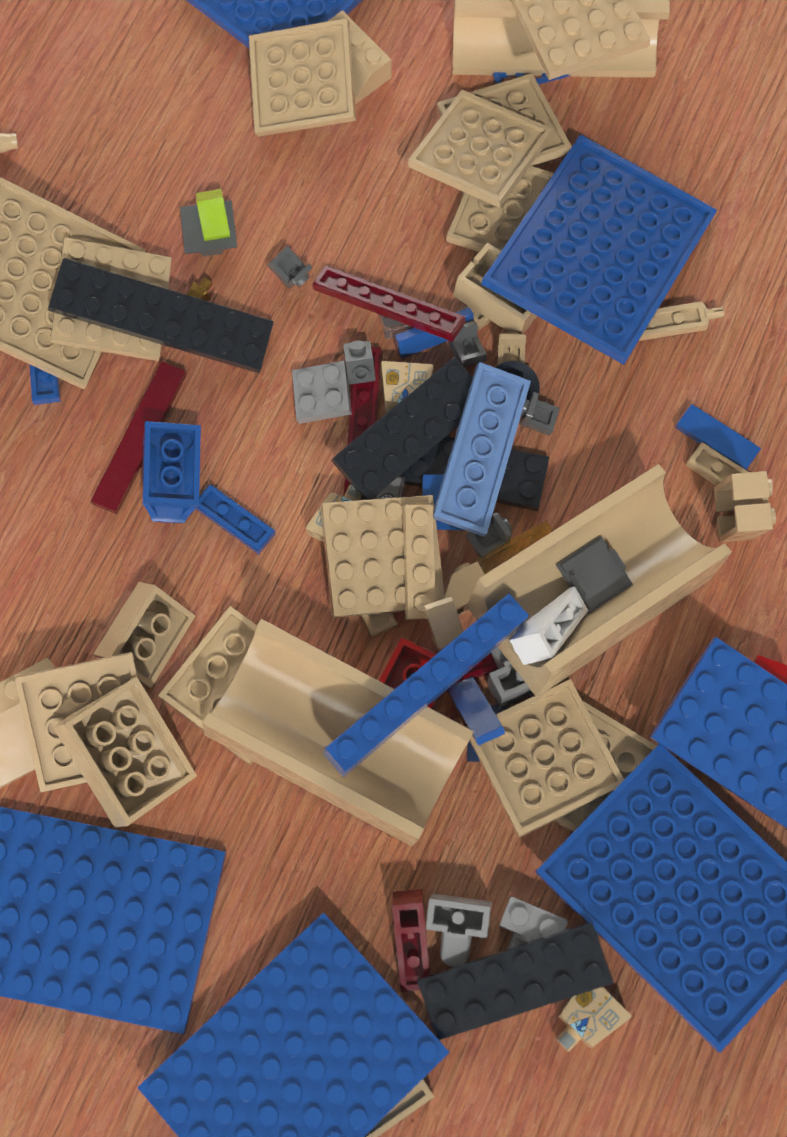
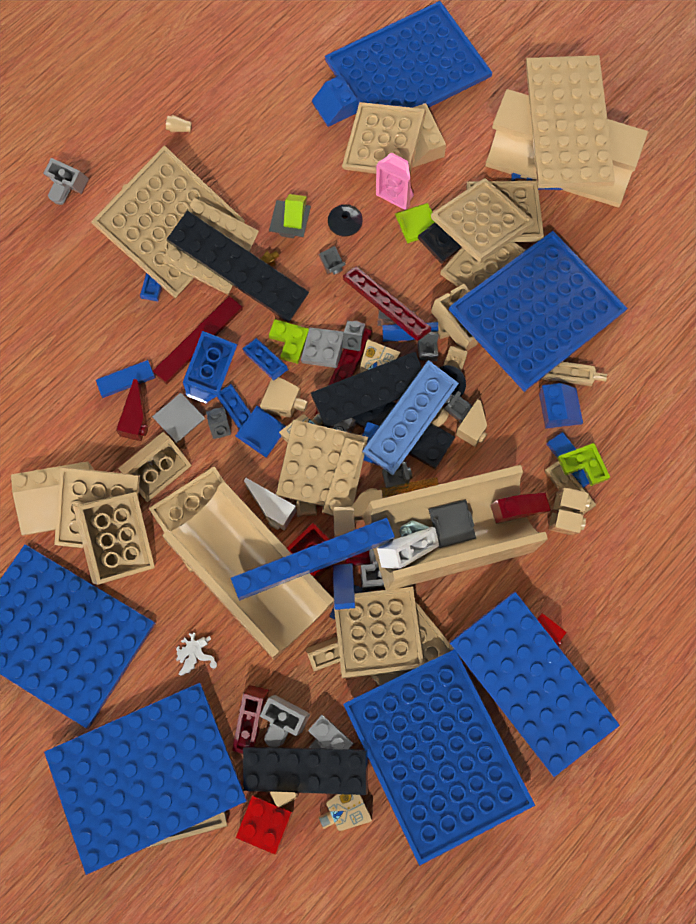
camera: 20 degrees right, 0 degrees up
(54, 525) = (123, 379): none -> blue tile
(88, 579) = (133, 417): none -> dark red slope
(153, 554) = (178, 417): none -> light grey piece
(212, 45) = (335, 101): none -> blue slope
(212, 543) = (218, 423): none -> dark grey bracket
(247, 433) = (265, 359): none -> blue tile
(272, 389) = (294, 339): none -> lime plate
(277, 536) = (260, 431): none -> blue piece
(285, 216) = (347, 226): none -> black dish
(291, 480) = (282, 398): none -> tan torso
(295, 870) = (193, 650): none -> white piece
(334, 635) = (276, 509): none -> white slope
(340, 130) = (394, 181): none -> bright pink slope
(388, 180) = (414, 221): none -> lime piece
(430, 197) = (439, 242): none -> black plate
(479, 813) = (324, 654): none -> tan slope
(486, 1076) = (264, 825): none -> red brick
(499, 1029) = (283, 798): none -> tan slope
(522, 437) = (440, 417): none -> tan tile
(542, 597) = (411, 527): none -> light aqua arm
(570, 433) = (473, 426): none -> tan slope
(674, 369) = (560, 405): none -> blue slope
(674, 523) = (519, 507): none -> dark red slope
(742, 430) = (586, 459): none -> lime plate

